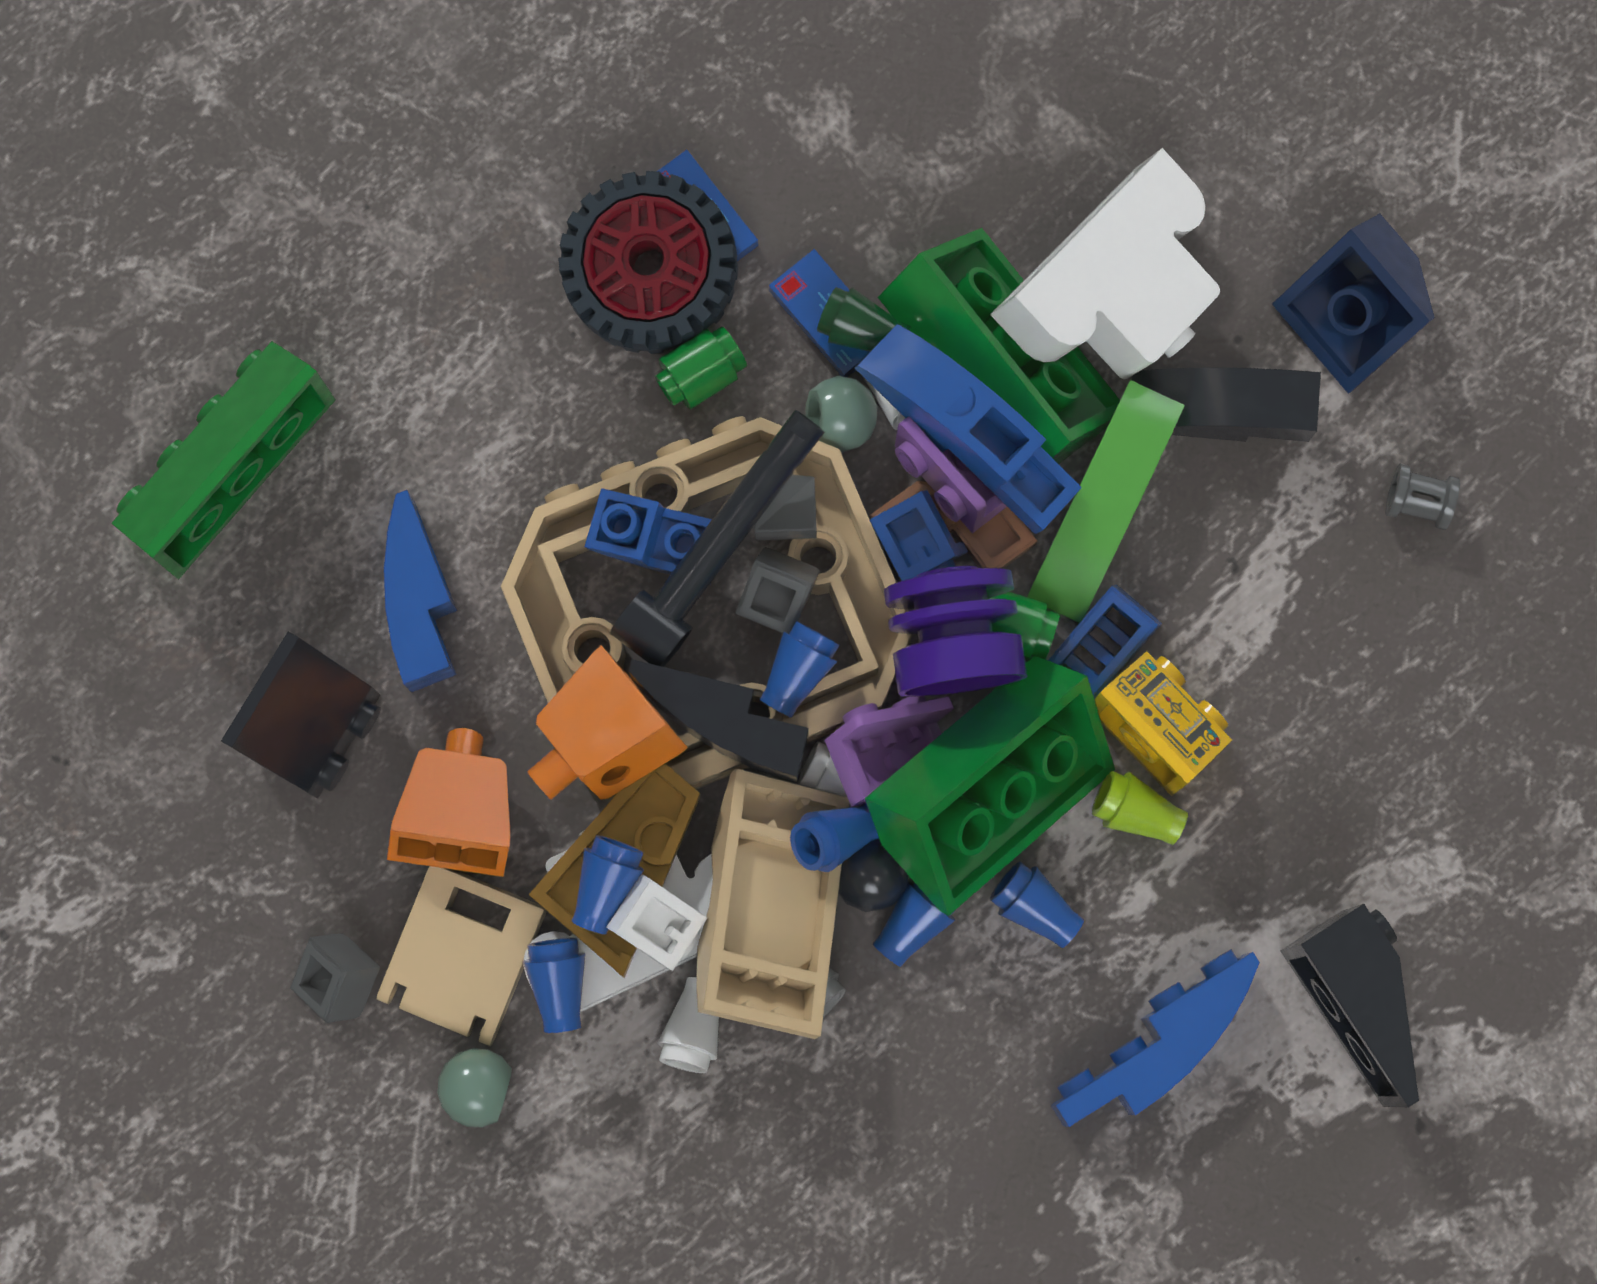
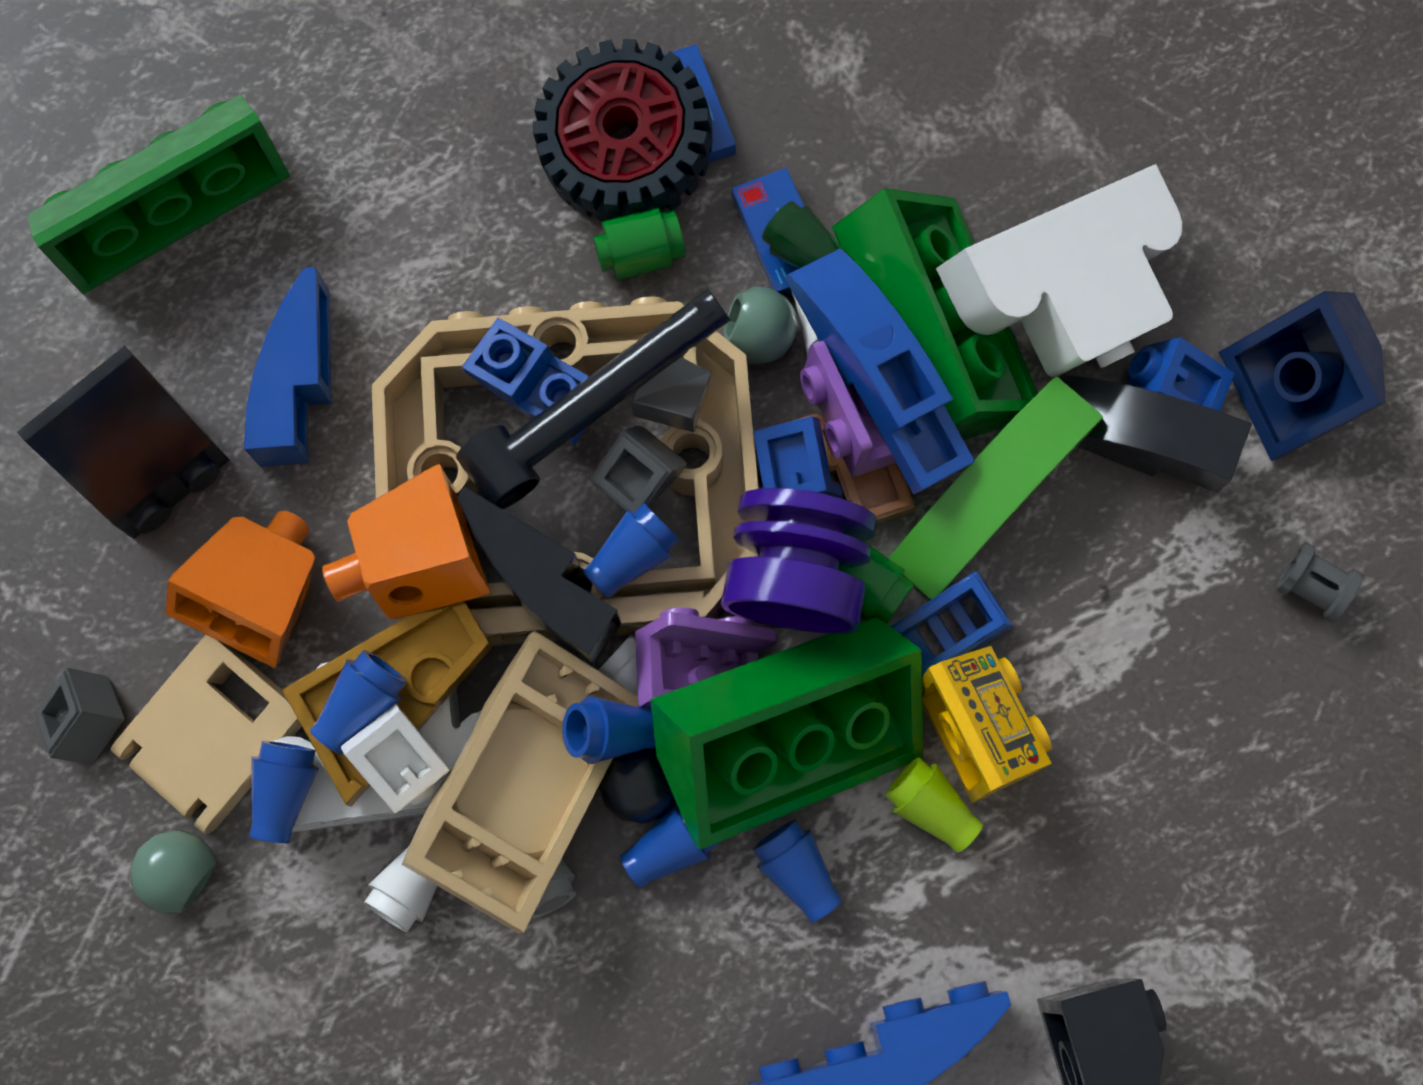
camera: 20 degrees right, 5 degrees down
(1242, 341) = (1181, 372): none -> blue bracket

